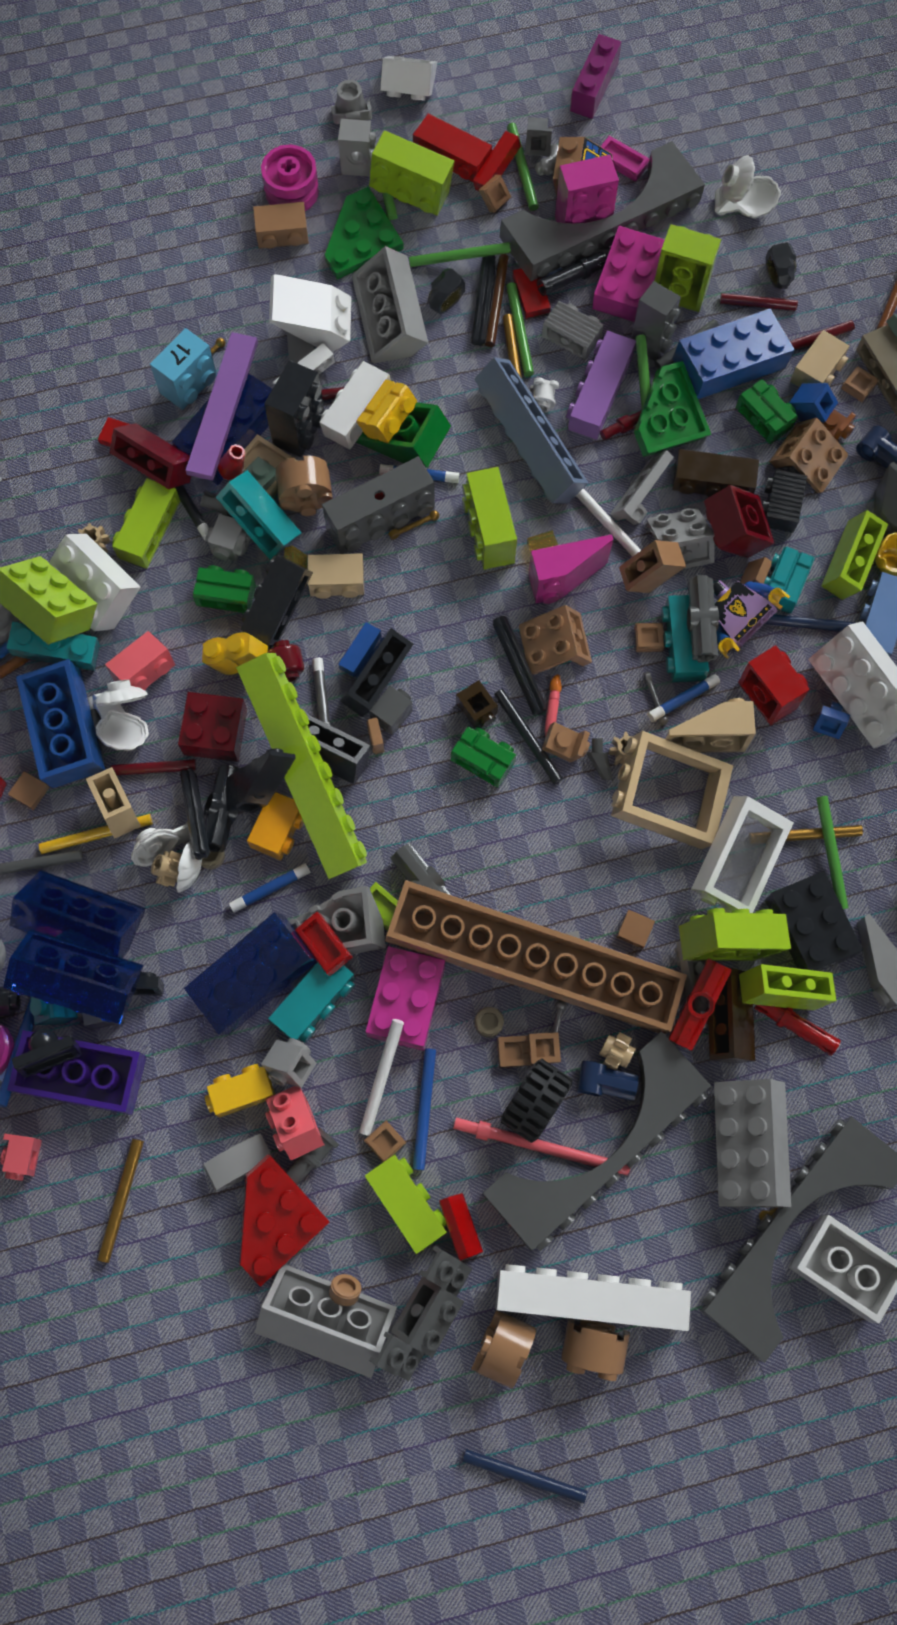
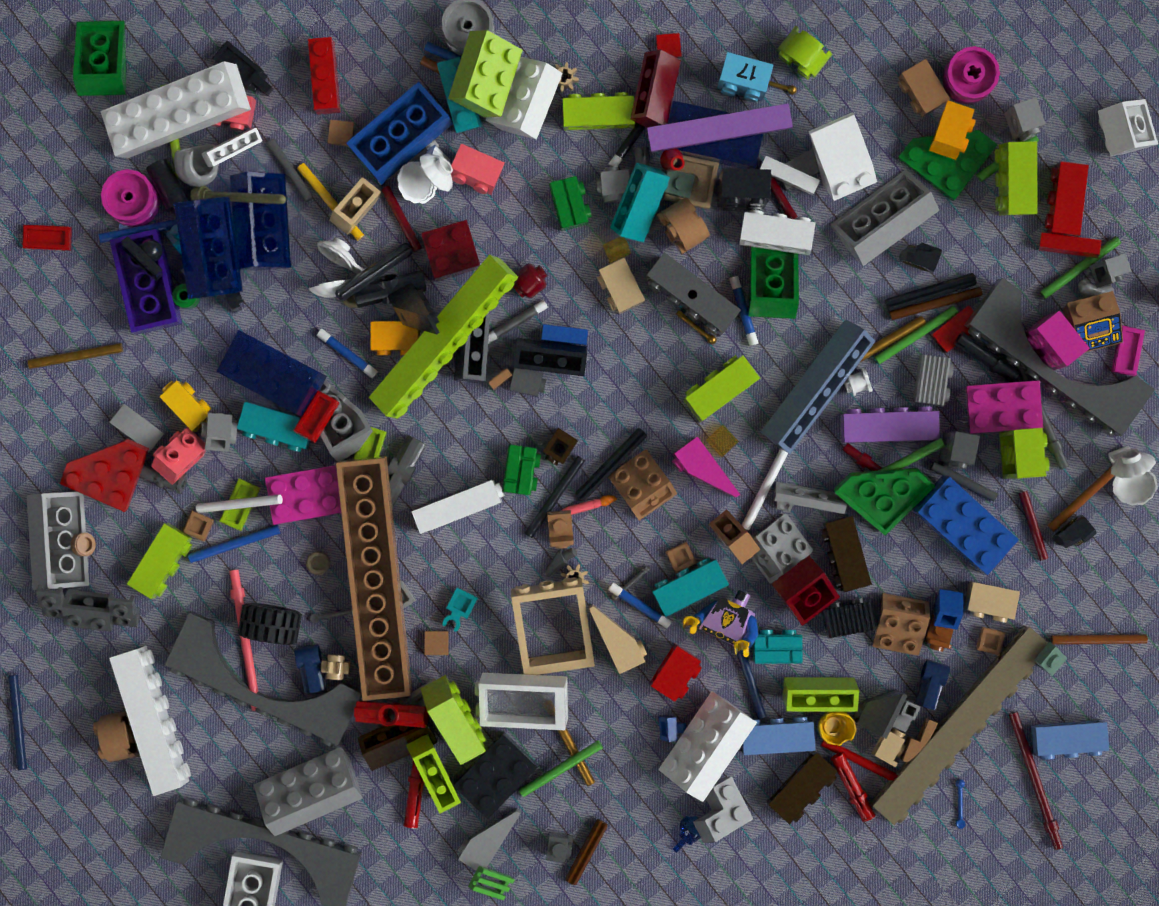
camera: 60 degrees right, 15 degrees up
(20, 1156) = (72, 269): coral brick -> none
(44, 900) = (204, 193): none -> olive piece
(123, 1040) = (177, 298): none -> green brick
(166, 868) = (325, 271): tan gear -> none
(189, 307) = (803, 52): none -> lime brick
(232, 652) = (515, 240): yellow brick -> none
(275, 600) = (574, 250): black brick -> none
(334, 211) = (952, 130): none -> light orange brick
(350, 103) = (1071, 92): light grey piece -> none
(387, 411) = (777, 263): yellow brick -> none
(395, 1091) = (237, 517): none -> lime tile
(460, 254) = (962, 254): bright green bar -> none
(460, 1226) = (161, 606): red tile -> none
(494, 834) = (458, 506): none -> white window
(495, 193) = (1038, 257): medium nougat tile -> none
(504, 1349) = (89, 673): medium nougat brick -> none
(527, 1050) = (309, 601): medium nougat slope -> none
(604, 883) = (460, 605): none -> teal plate
(702, 618) = (703, 595): dark grey piece -> none
(750, 246) = (1081, 500): none -> dark orange bar
(756, 571) = (771, 620): medium nougat tile -> none
(766, 411) = (926, 573): green brick -> none
(834, 330) = (1024, 592): dark red bar -> none

